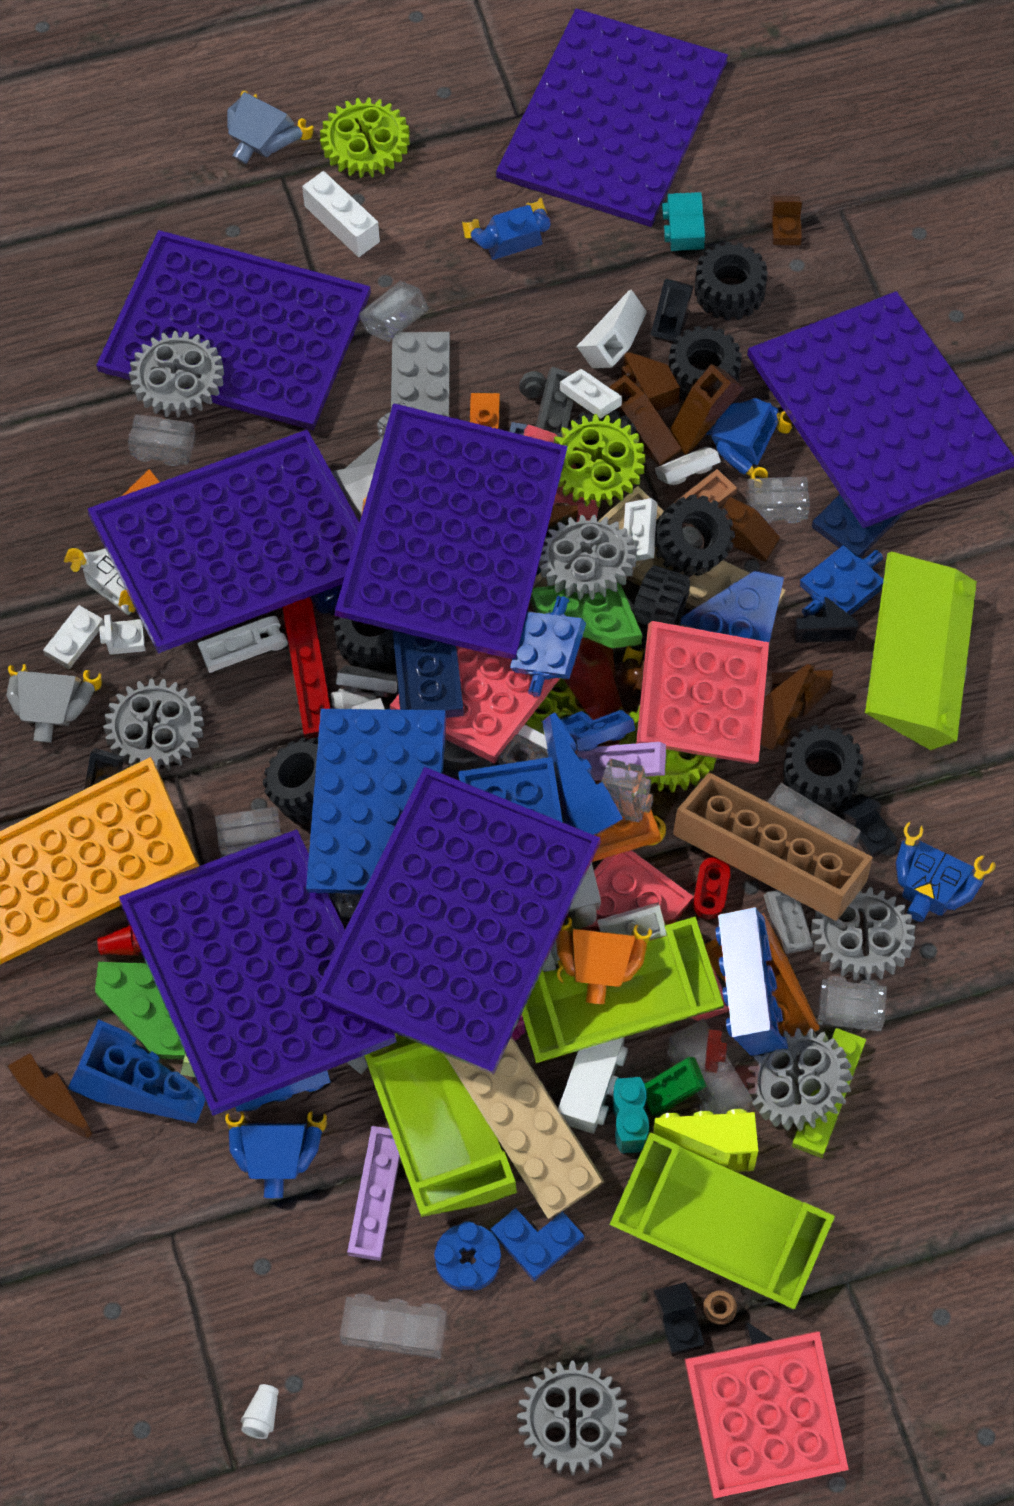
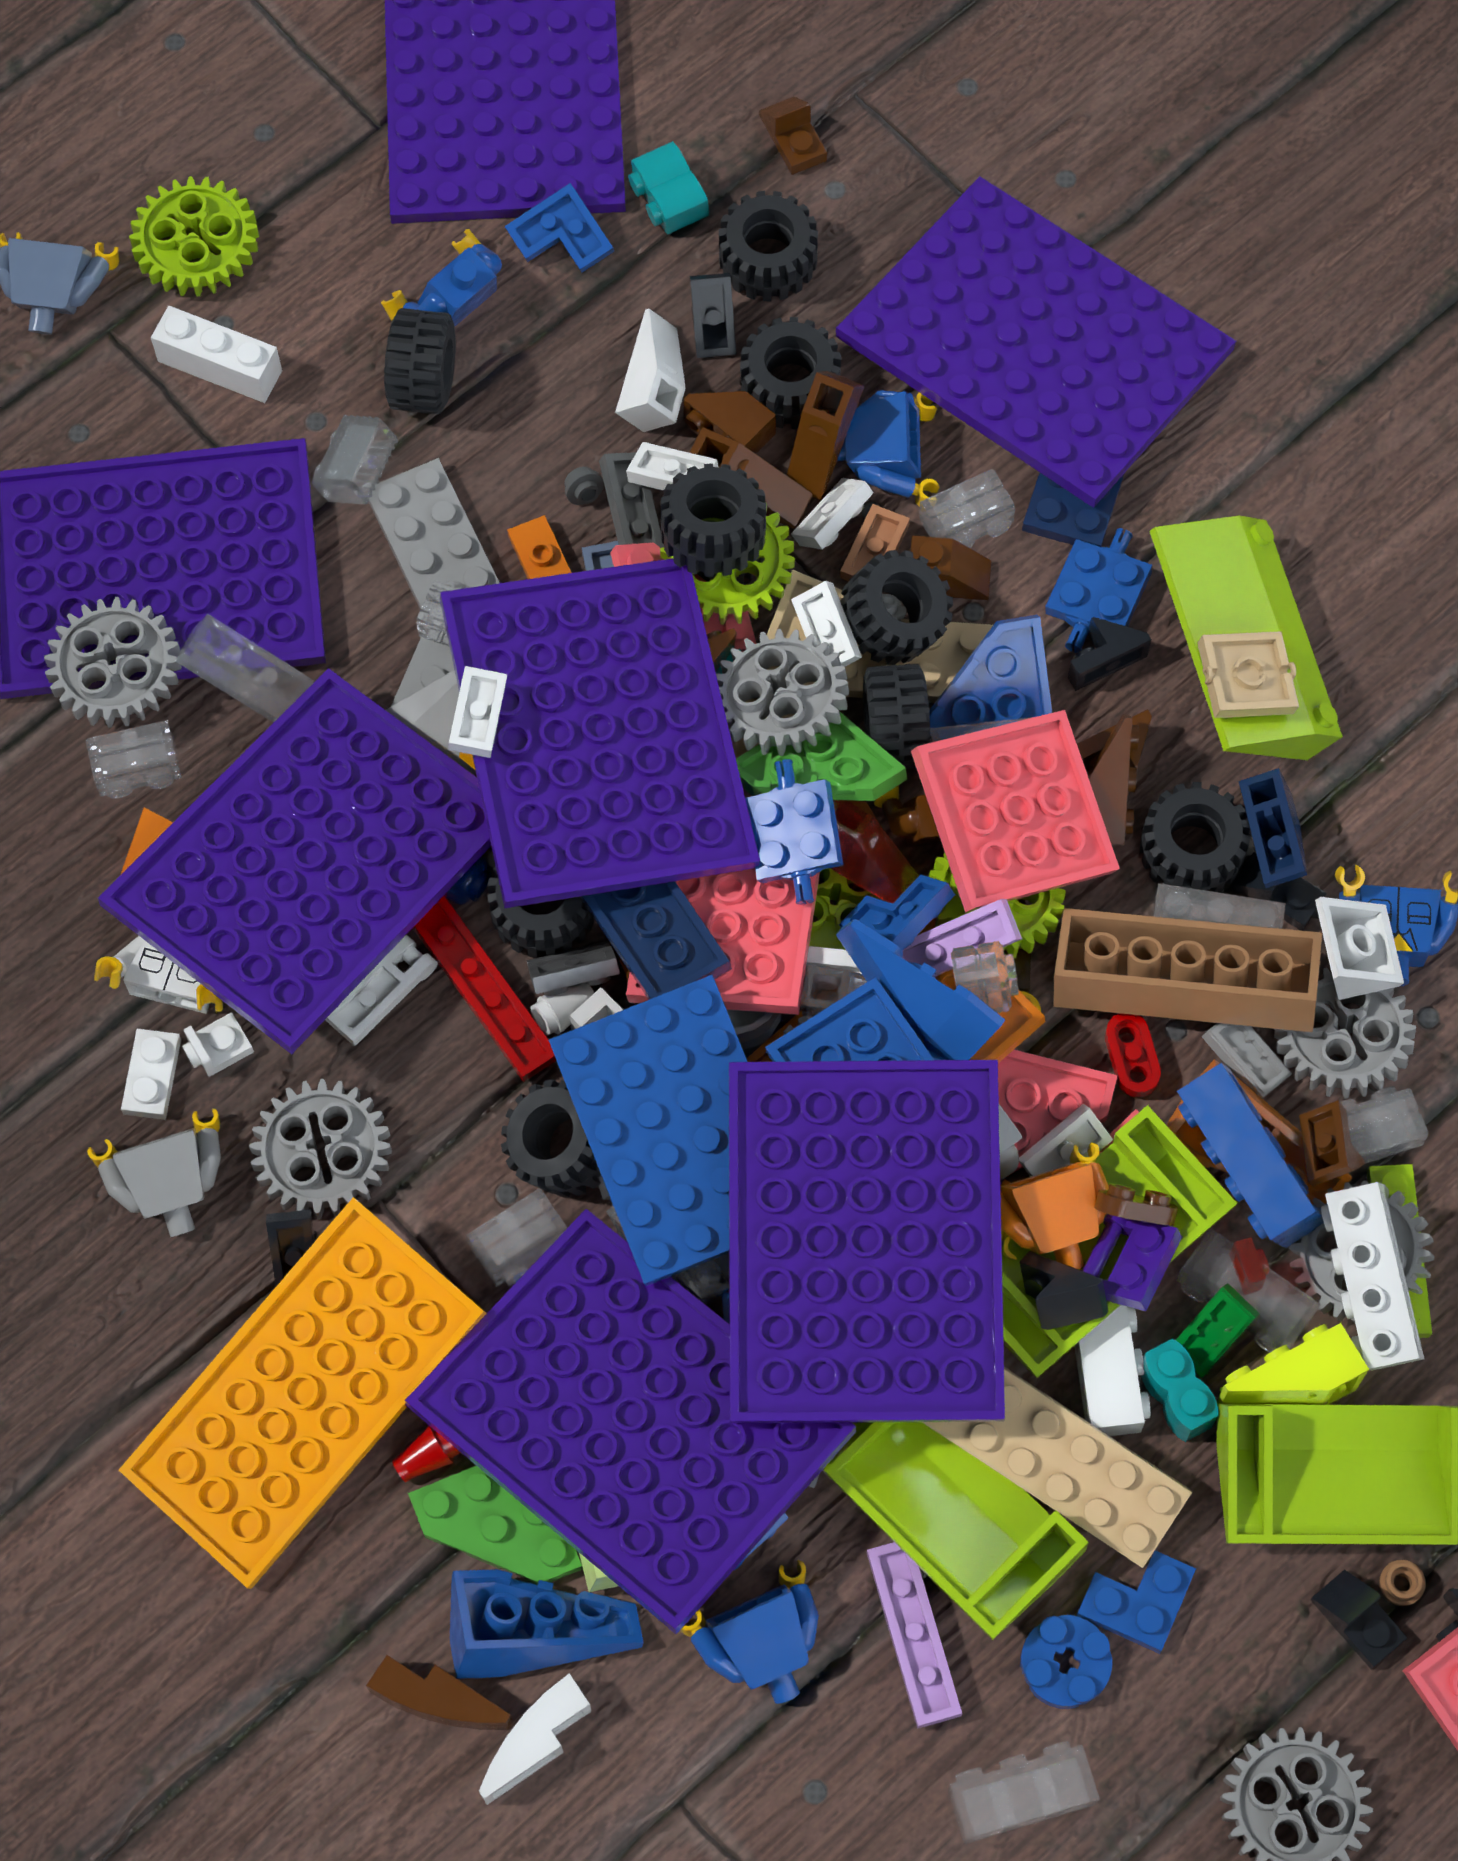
camera: 25 degrees left, 5 degrees up
(96, 1149) = (533, 1738): none -> white slope
(252, 406) = (242, 668): none -> clear brick
(376, 484) = (477, 712): none -> white plate
(464, 264) = (420, 361): none -> black tyre
(577, 1013) = (1062, 1292): none -> black slope
(592, 428) = (713, 494): none -> black tyre
(603, 214) = (561, 219): none -> blue plate
(637, 1017) = (1140, 1262): none -> dark purple plate
(644, 970) = (1123, 1203): none -> reddish brown plate
(793, 1093) = (1373, 1276): none -> white brick
(807, 997) = (1328, 1143): none -> reddish brown slope
(879, 778) = (1274, 827): none -> dark blue slope
(894, 877) = (1359, 946): none -> white slope
(905, 669) = (1248, 674): none -> tan plate

